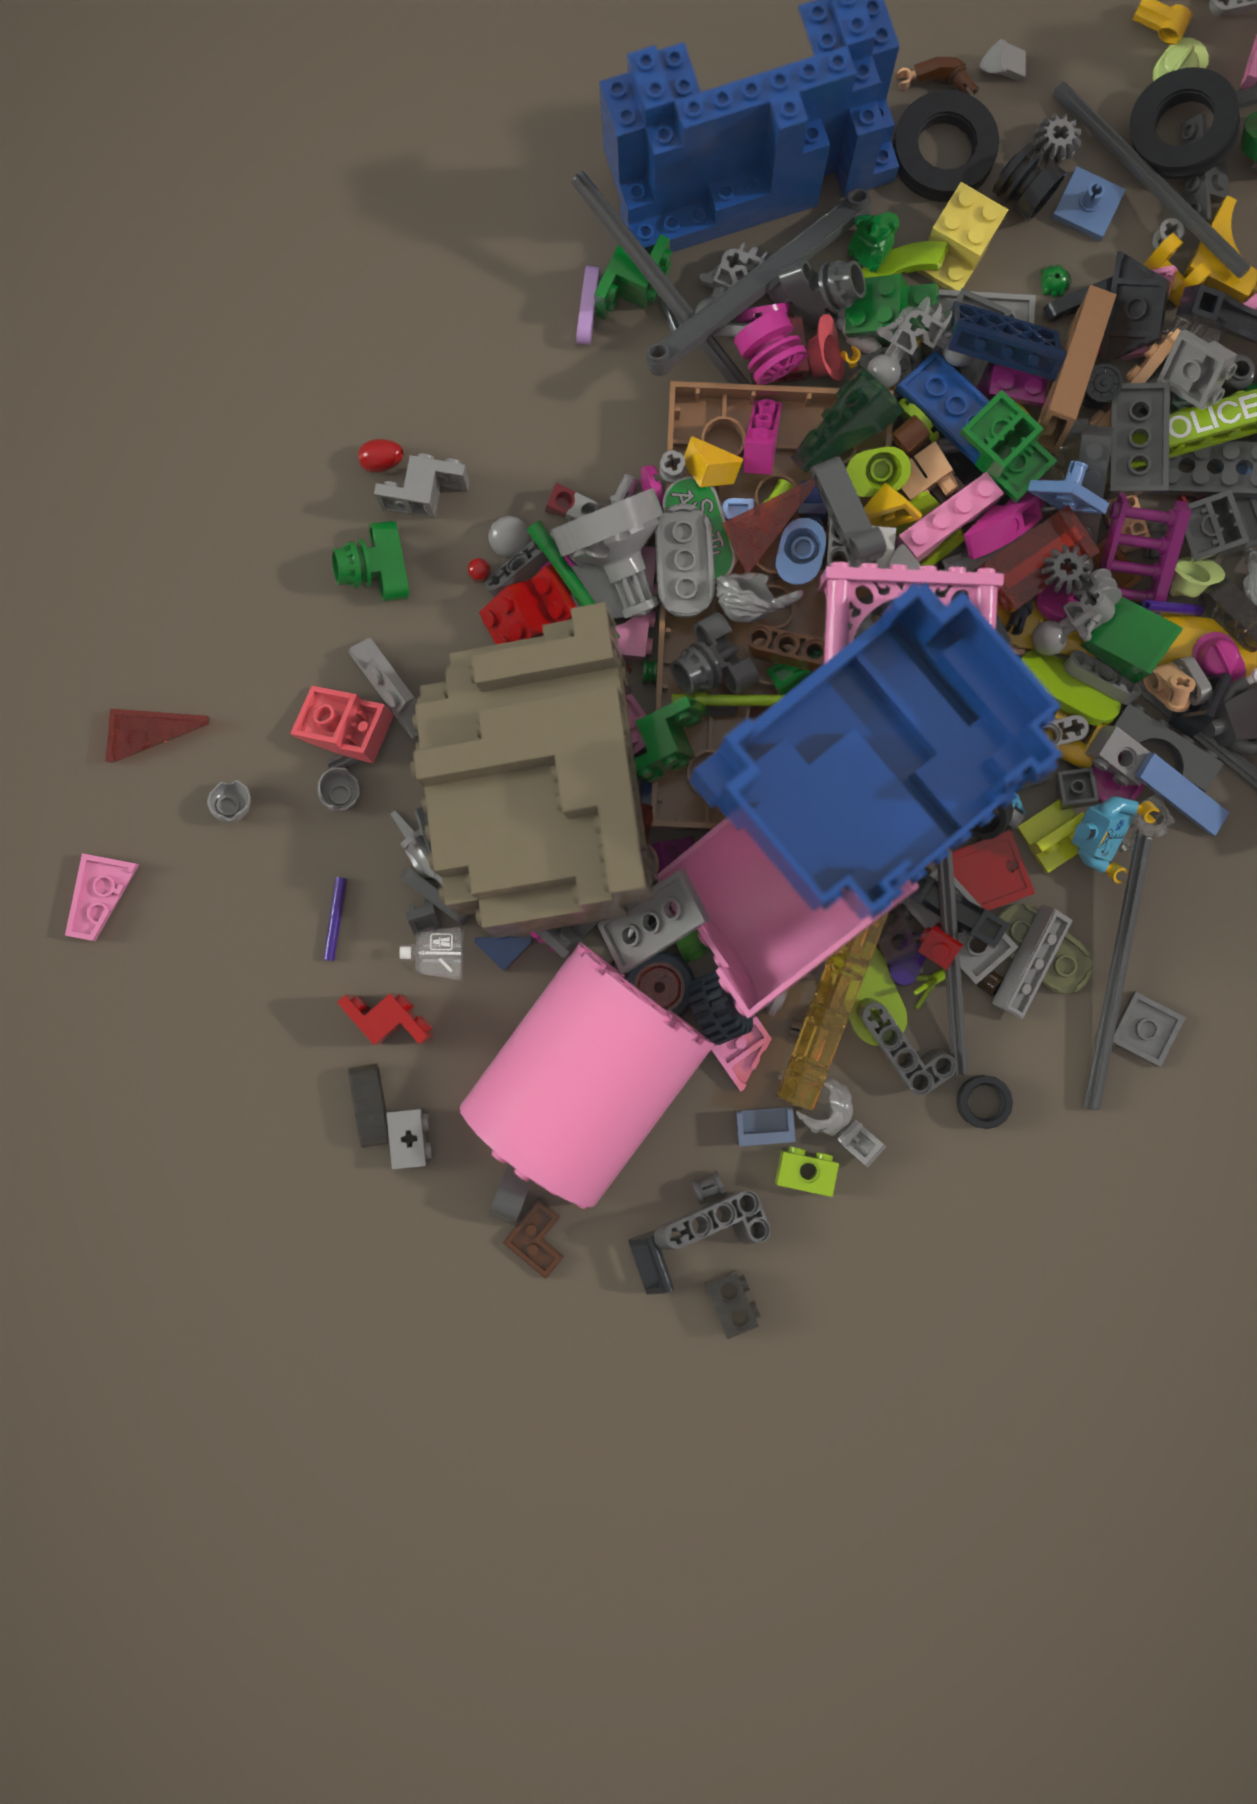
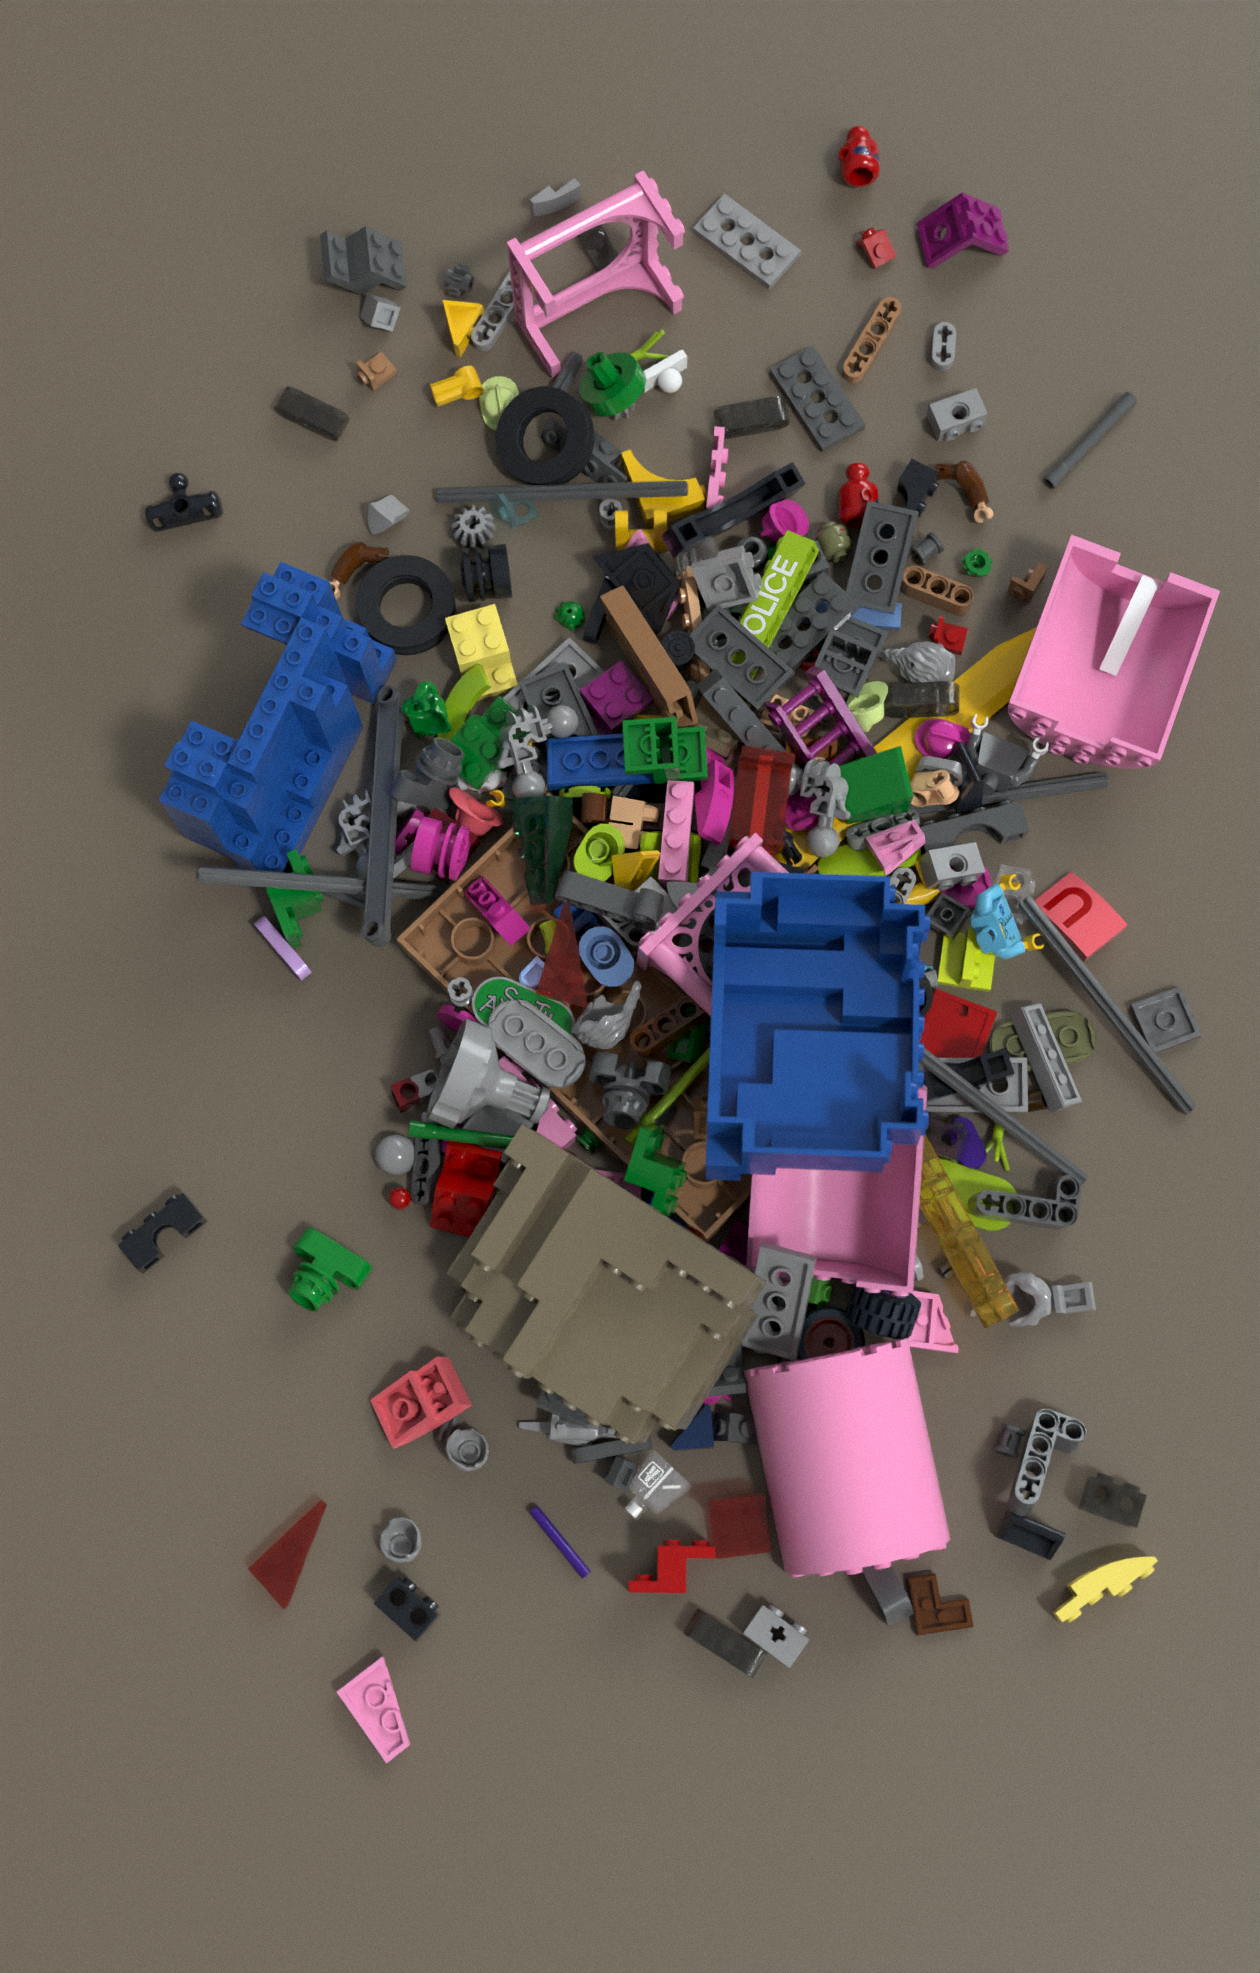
camera: 45 degrees left, 10 degrees down
(178, 851) = (402, 1614): none -> black brick
(272, 411) = (141, 1244): none -> black arch
(380, 455) = (249, 1194): red animal -> none
(386, 682) = (424, 1341): light grey bracket -> none
(422, 485) = (302, 1183): light grey bracket -> none
(463, 1041) = (739, 1526): none -> clear red bracket
(532, 973) = (734, 1428): none -> dark grey bracket
(675, 1351) = (1111, 1577): none -> light yellow slope
(711, 464) = (485, 963): yellow slope -> none
(765, 1126) = (999, 1357): sand blue panel -> none
(822, 1180) = (1076, 1352): lime brick -> none
(939, 946) = (978, 1112): red bracket -> none
(1005, 1096) = (1121, 1161): black tyre -> none
(1007, 349) = (583, 697): dark blue fence -> none
(1069, 492) = (734, 737): medium blue tile -> none
(1072, 562) = (787, 796): dark grey gear -> none
(1088, 203) = (537, 546): medium blue tile -> none
(1096, 154) = (507, 511): none -> clear light blue bracket
(1098, 697) = (895, 844): none -> bright pink wing
(1172, 891) = (1080, 915): none -> coral slope
(1173, 607) = (878, 738): dark purple piece -> none
(1181, 794) = (1016, 848): medium blue tile -> none

